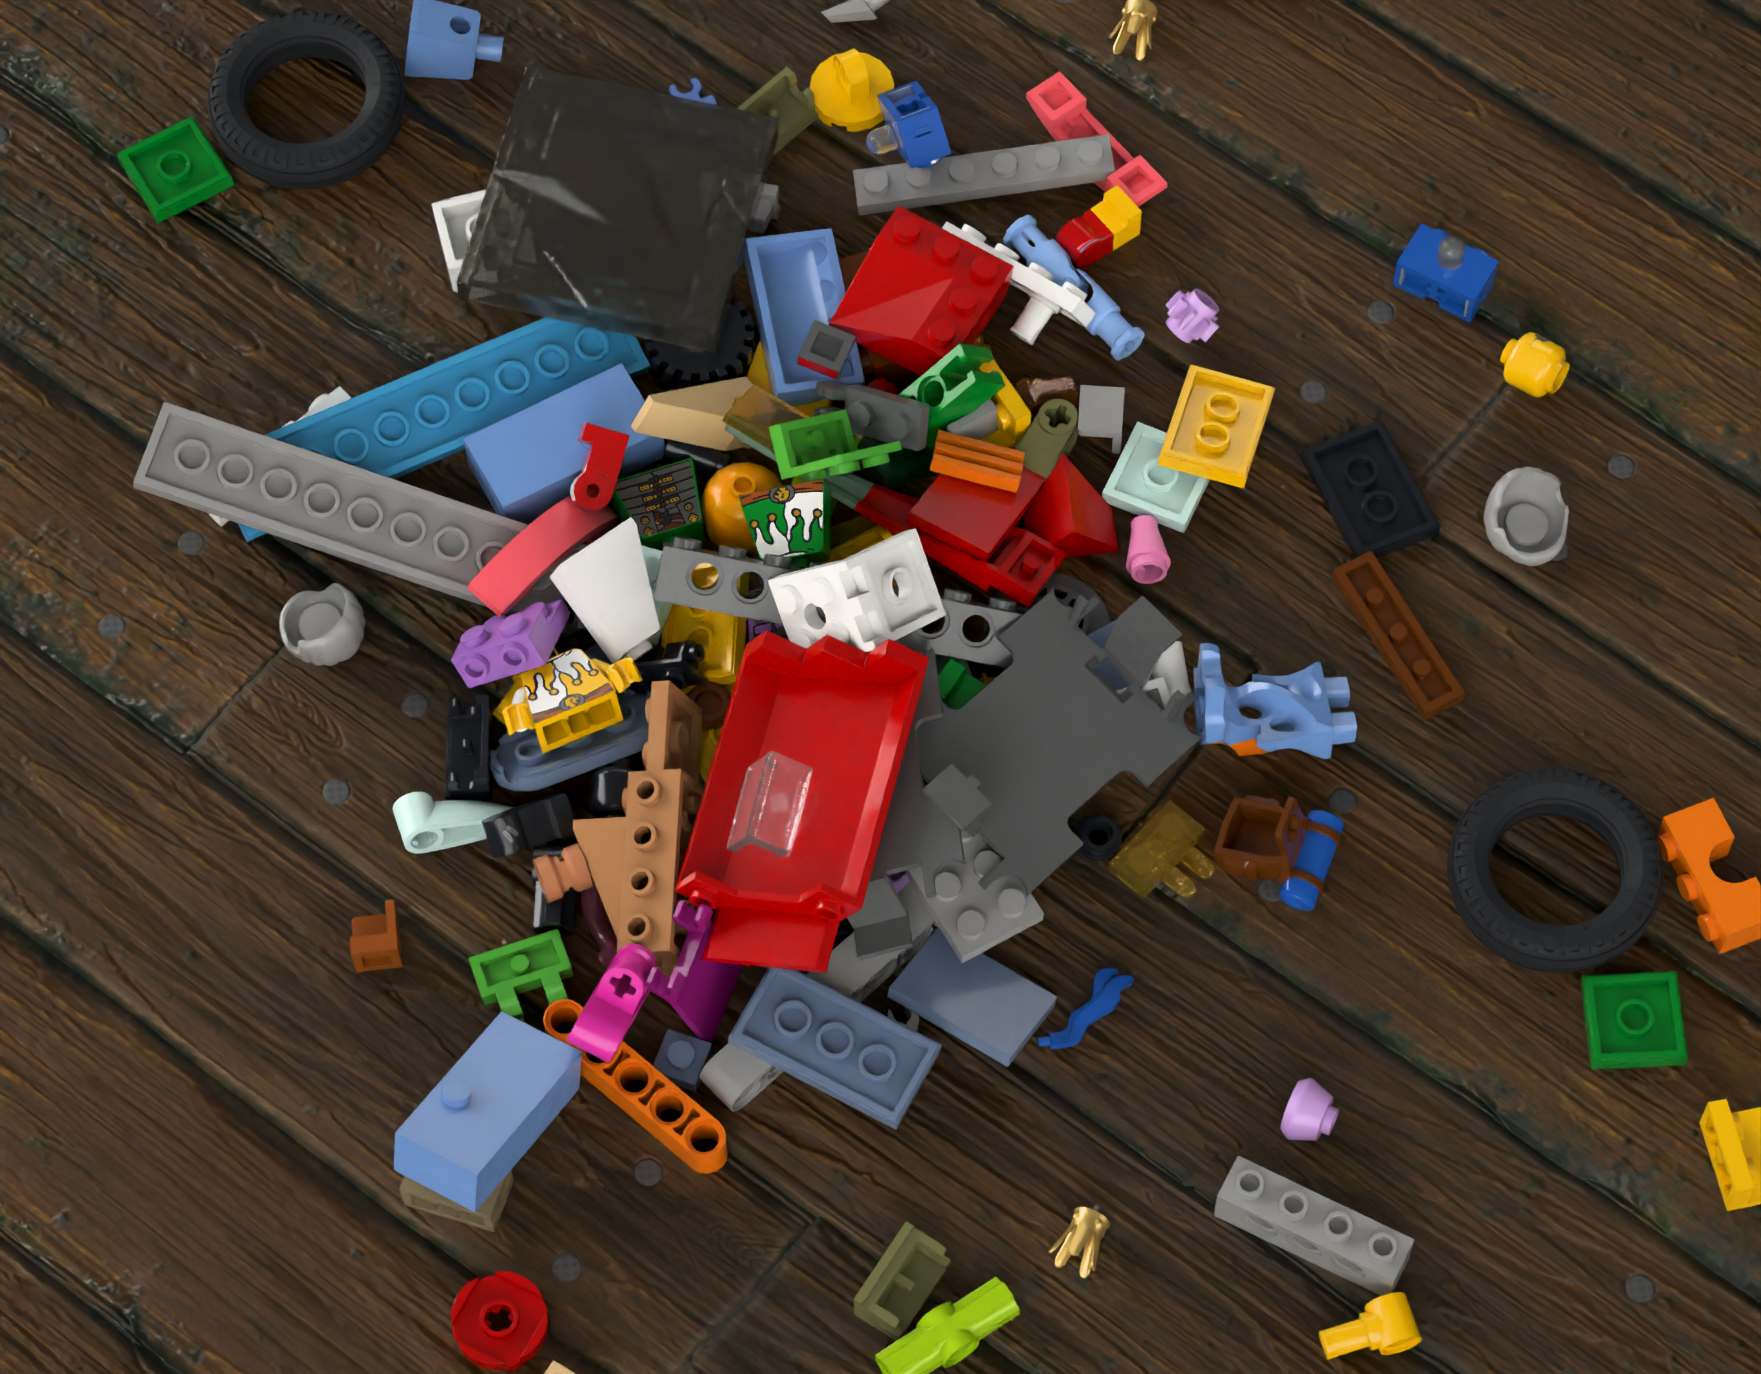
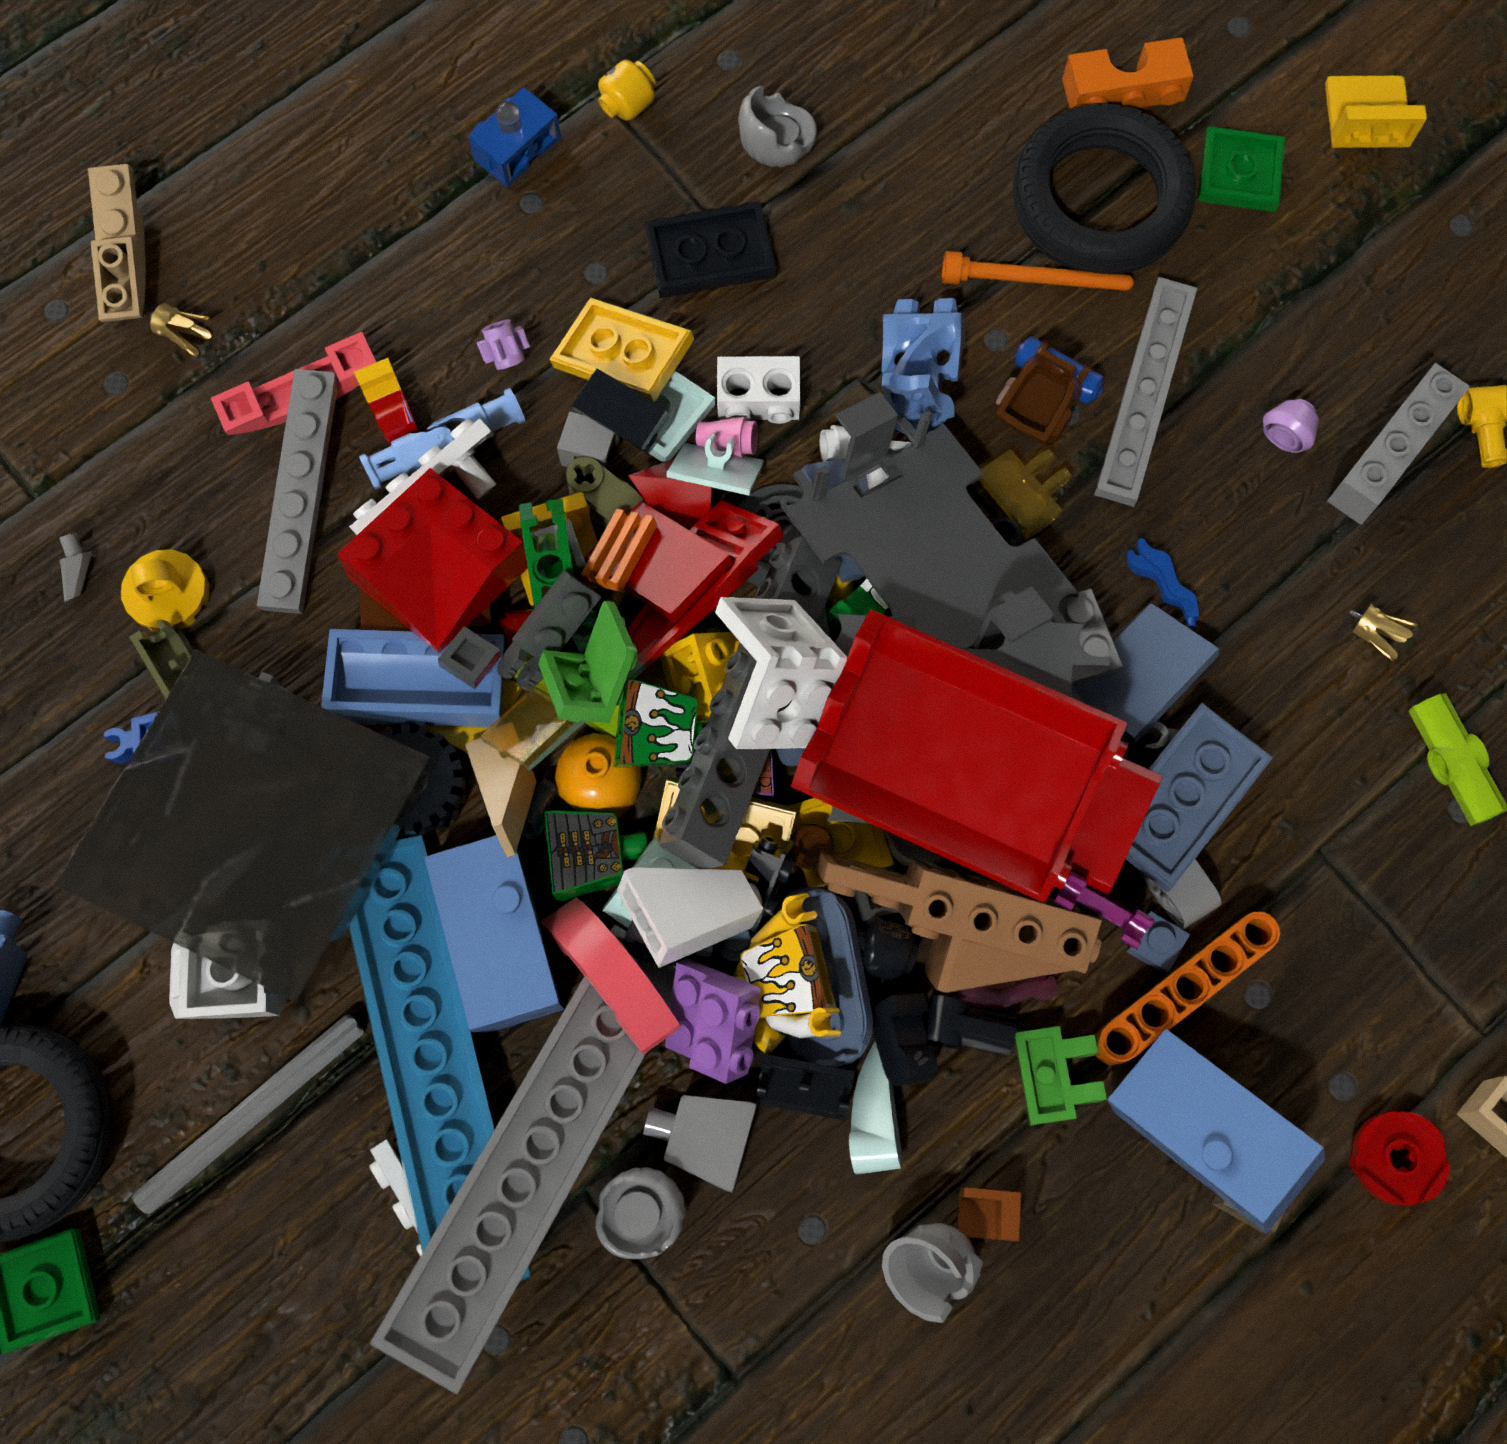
camera: 80 degrees left, 10 degrees up
(315, 887) = (930, 1268): none -> light grey helmet
(358, 289) = (247, 1114): none -> light grey axle
(402, 673) = (704, 1137): none -> light grey torso
(561, 873) = (978, 1013): nougat wheel -> none
(601, 467) = (545, 896): red leg -> none
(614, 1003) = (1130, 989): dark pink piece -> none
(770, 804) = (976, 796): clear panel -> none
(901, 1282) = (1401, 792): olive hinge -> none
(910, 127) = (234, 535): blue piece -> none
(1038, 391) = (546, 480): clear orange piece -> none
(1098, 539) = (715, 467): none -> light aqua piece
(1133, 434) = (622, 411): none -> black hinge
(1215, 565) = (758, 378): none -> white brick
(1314, 955) = (1145, 392): none -> light grey plate
(1398, 635) = (857, 257): reddish brown plate -> none
(1414, 738) = (960, 268): none -> orange piece

